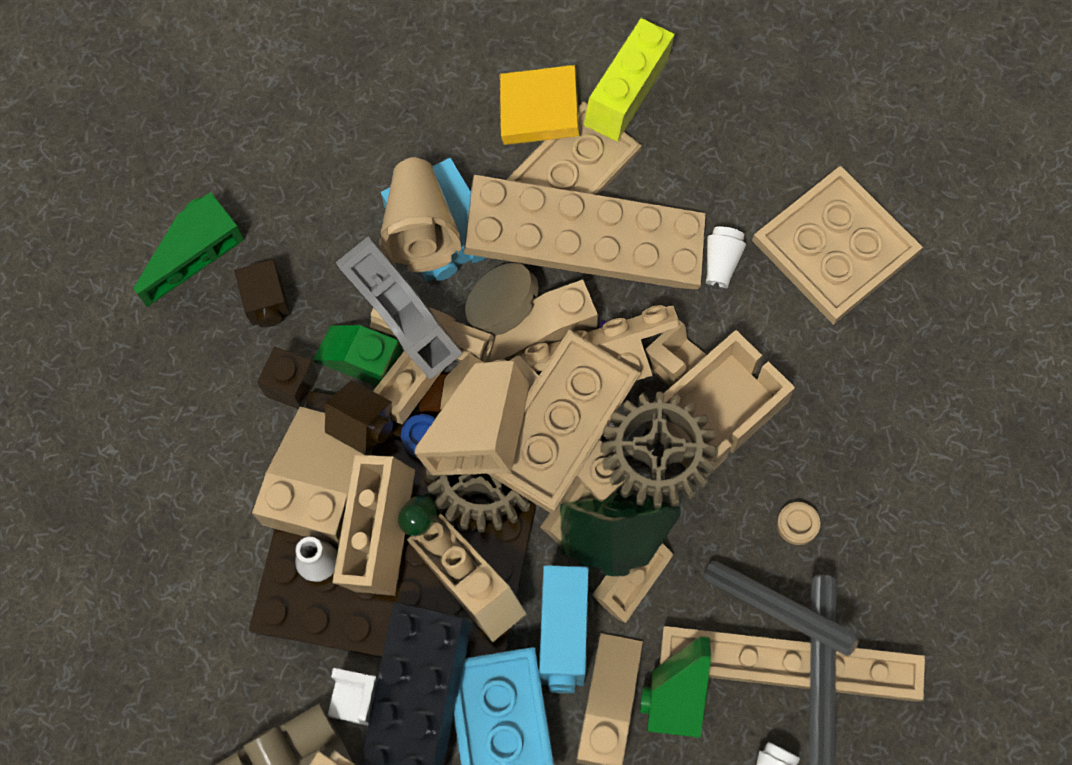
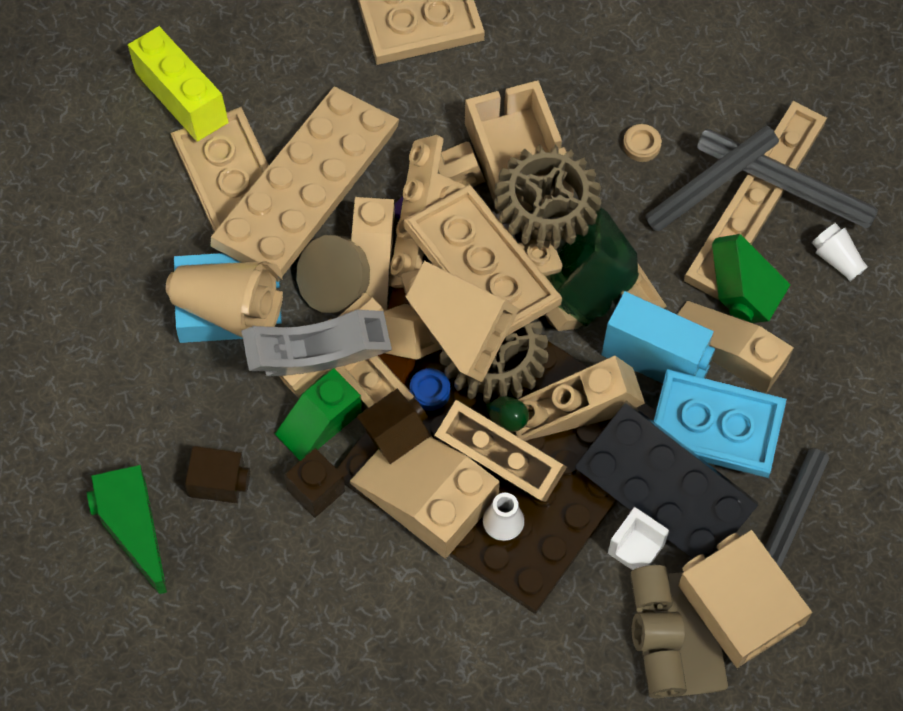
camera: 70 degrees left, 5 degrees down
(539, 105) = (155, 168): yellow tile -> none
(723, 254) = (379, 88): white cone -> none

